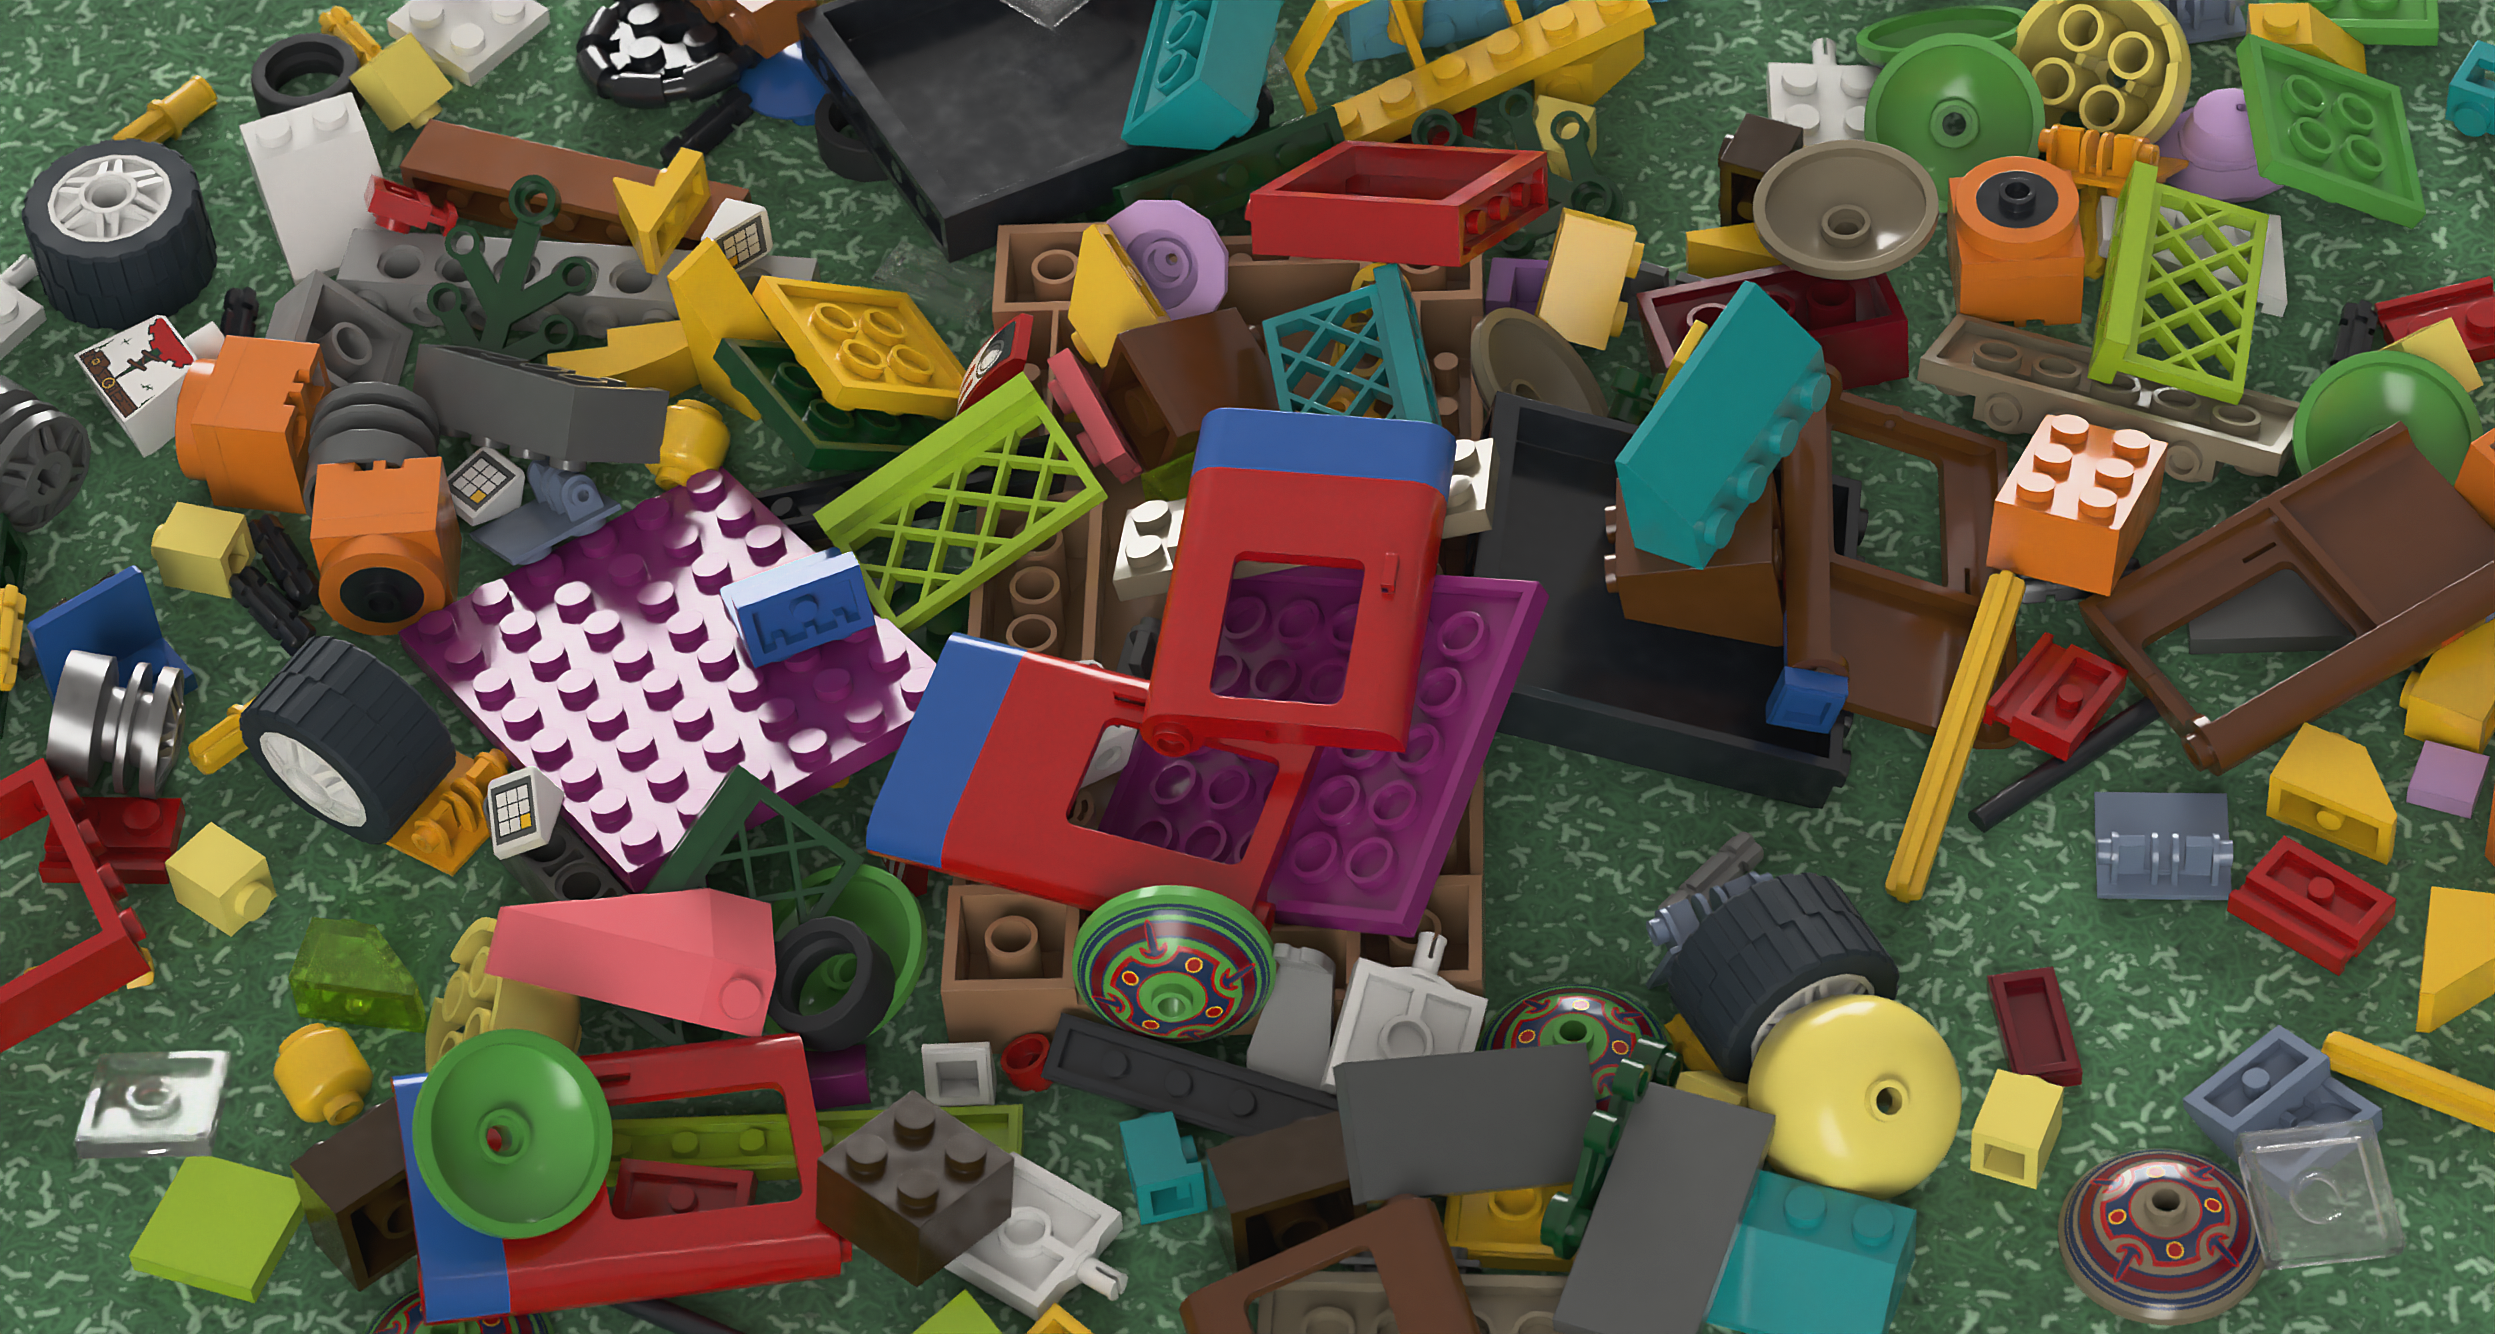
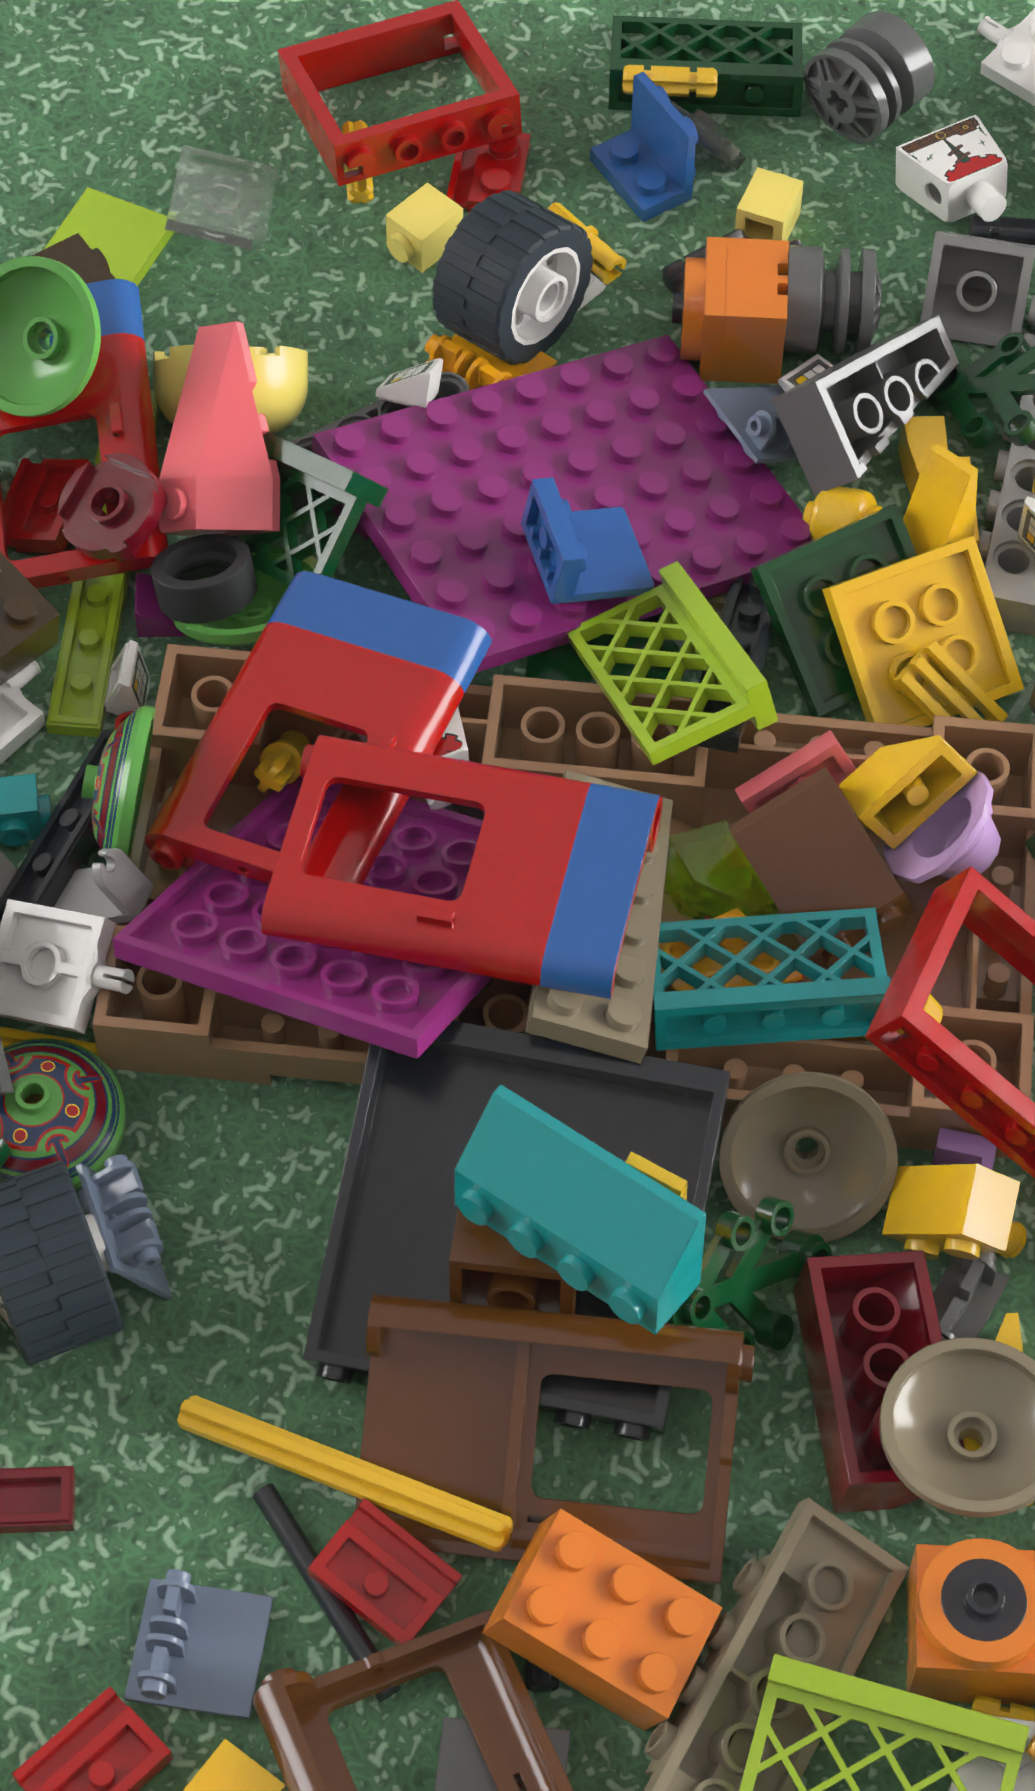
camera: 90 degrees right, 10 degrees up
(115, 724) = (563, 144): flat silver wheel -> none
(249, 421) = (887, 208): orange piece -> none
(323, 1074) = (221, 289): yellow head -> none
(354, 978) = (314, 306): clear neon green slope -> none
(739, 1019) = (132, 521): none -> dark red plate
(928, 327) = (958, 677): none -> yellow tile
(996, 361) = (857, 716): slope -> none
(1731, 862) = (229, 1254): light grey axle -> none
(1806, 700) = (356, 1320): blue tile -> none

